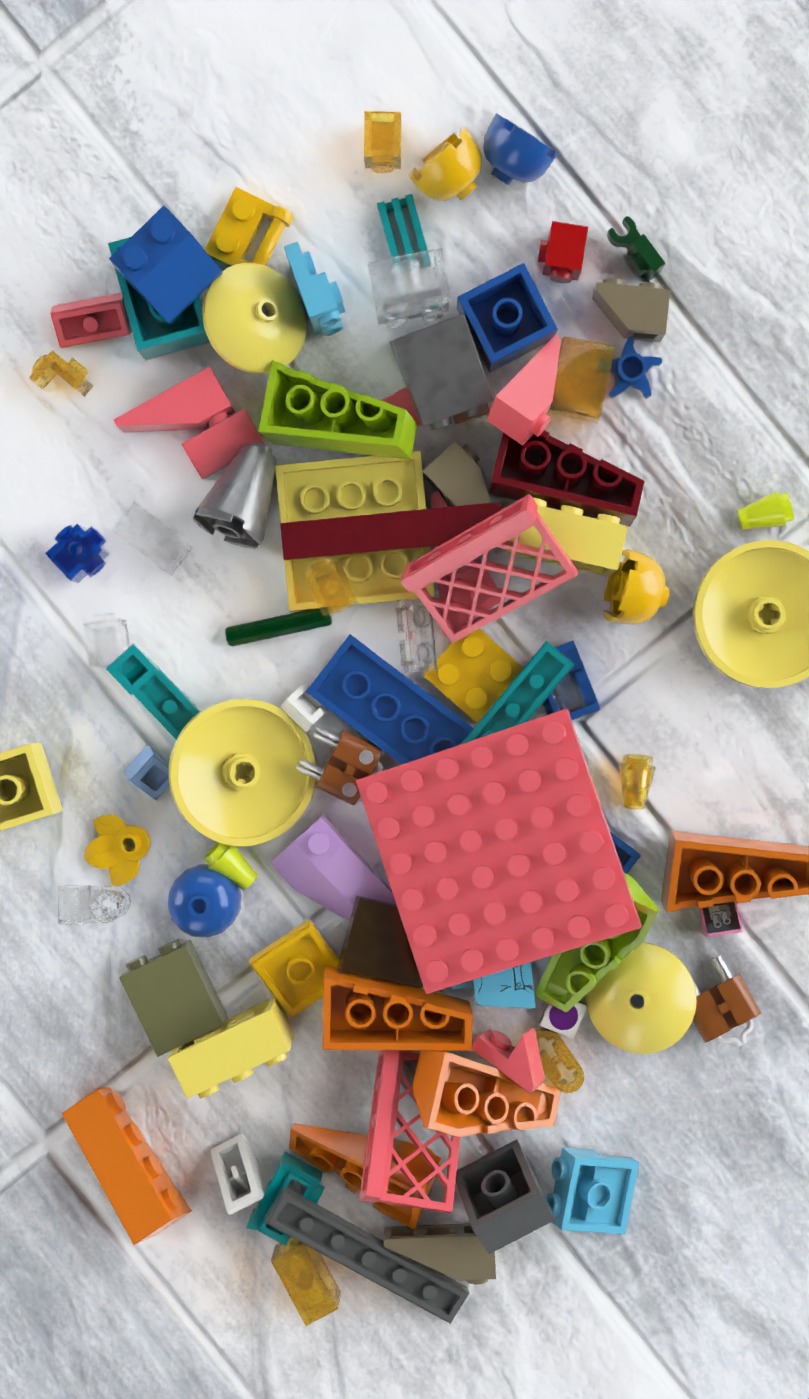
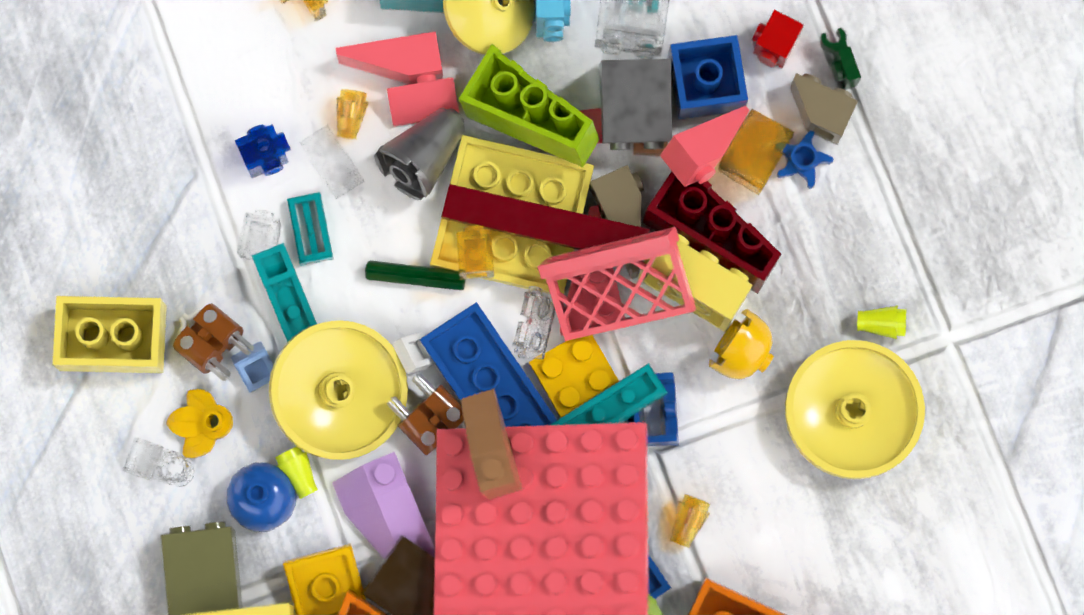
camera: 20 degrees right, 10 degrees down
(95, 763) = (209, 338): none -> dark orange piece
(153, 481) = (350, 112): none -> clear yellow cone
(172, 640) = (315, 257): none -> teal tile
(415, 784) = (490, 445): none -> medium nougat slope

